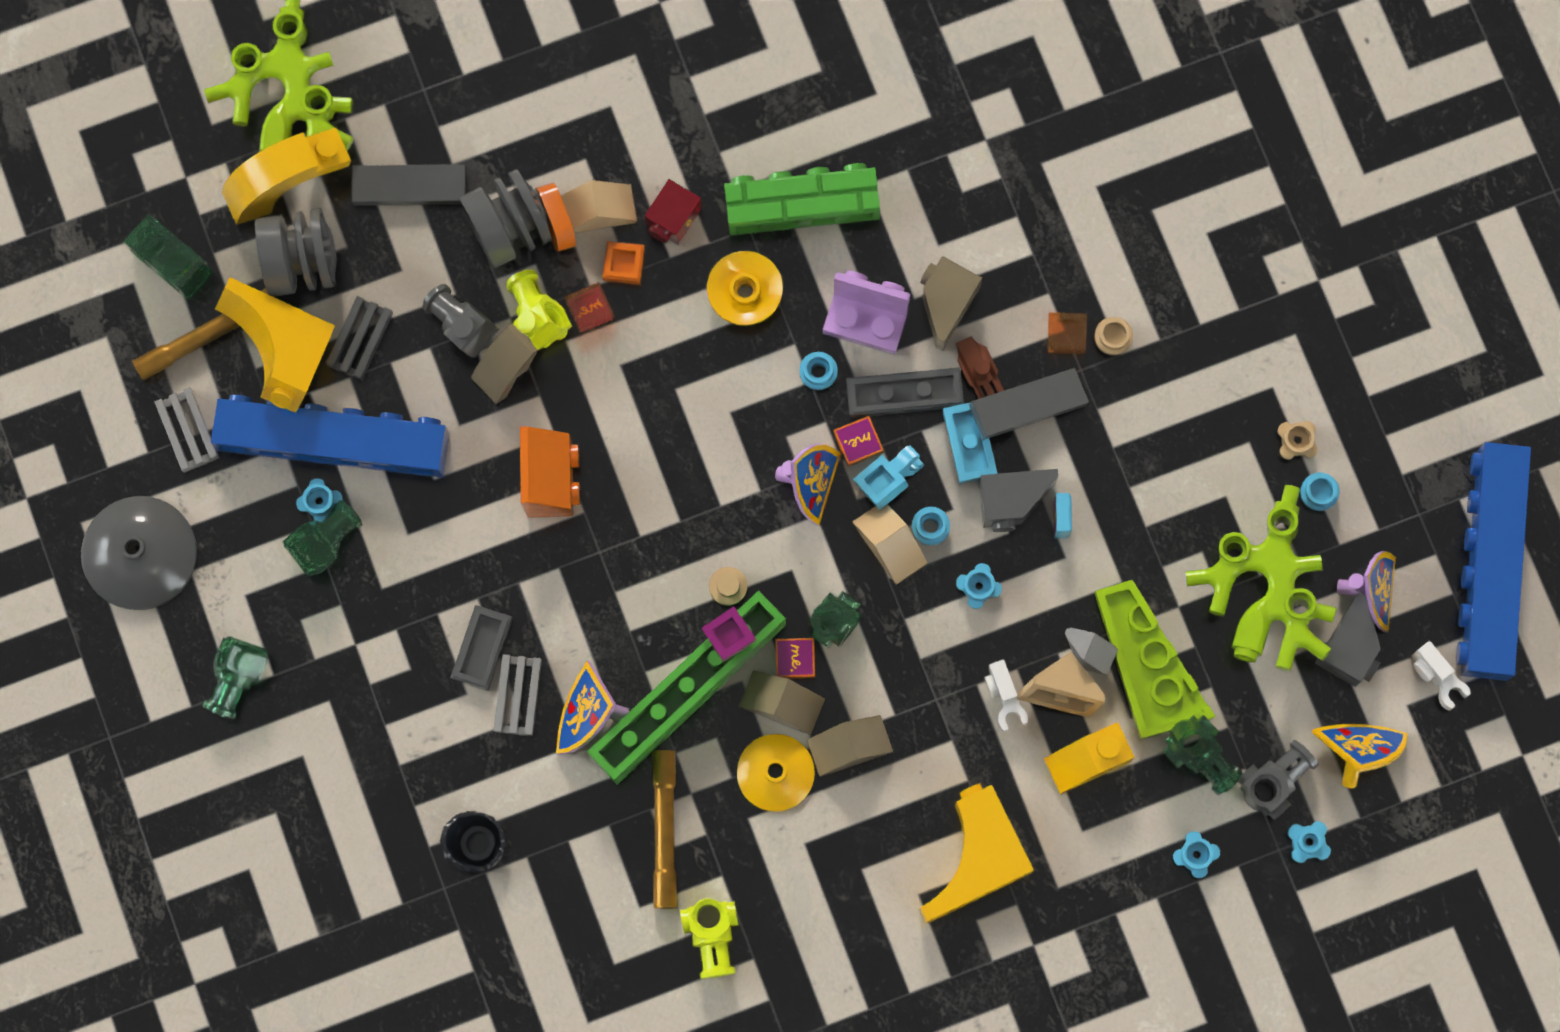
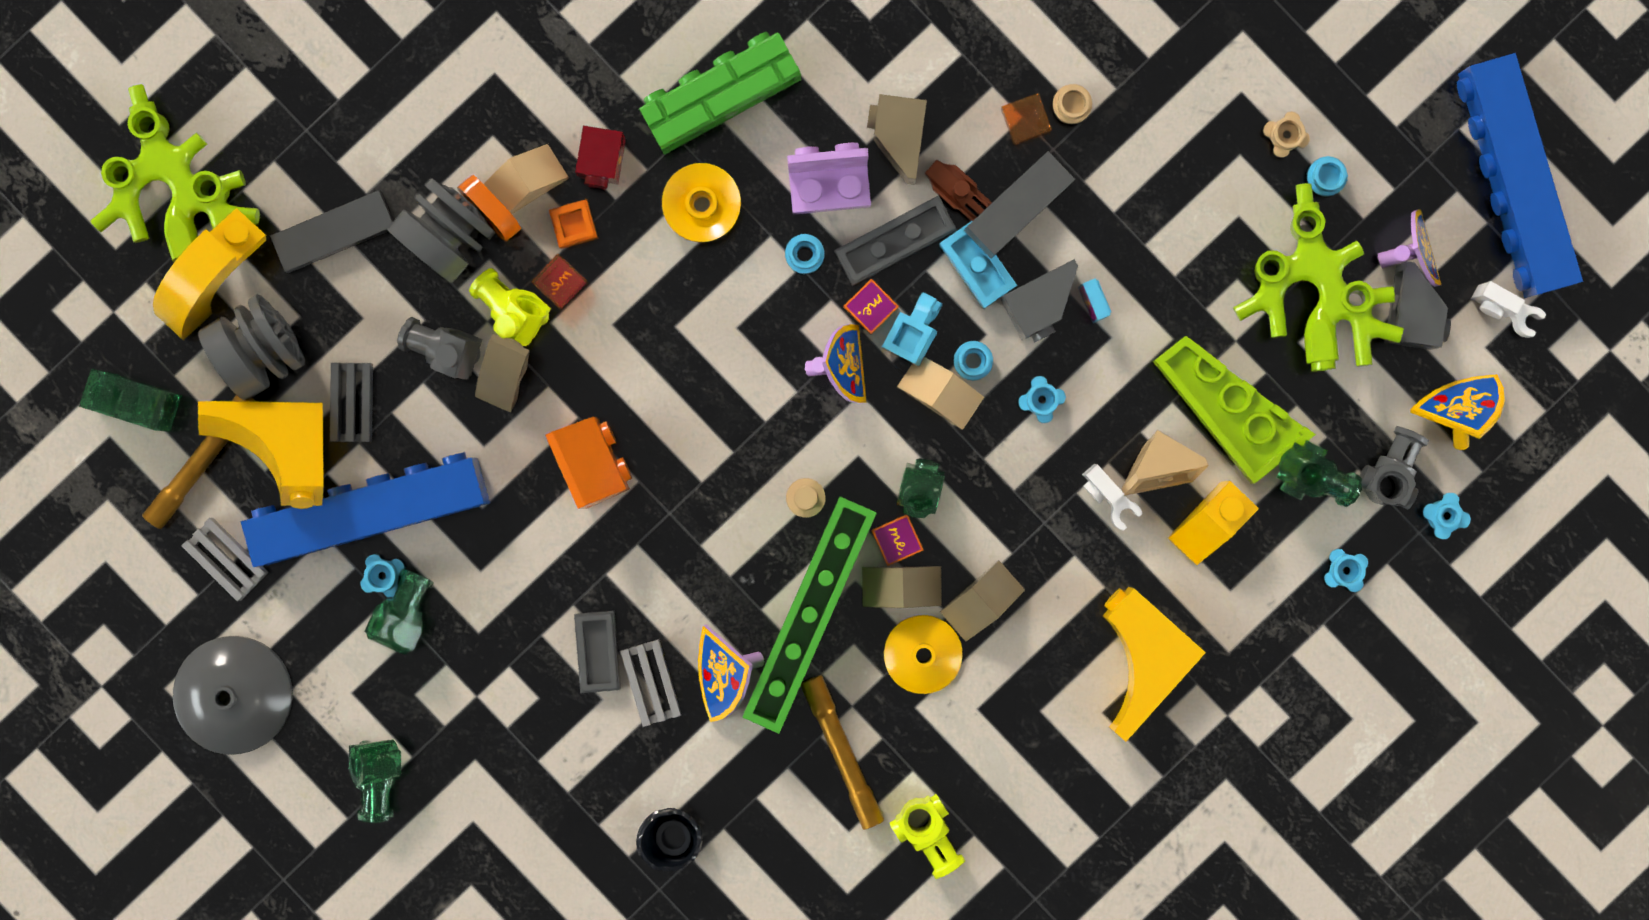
camera: 25 degrees left, 10 degrees up
(728, 634) = (830, 553): magenta plate -> none
(1091, 650) = (1174, 420): light grey slope -> none

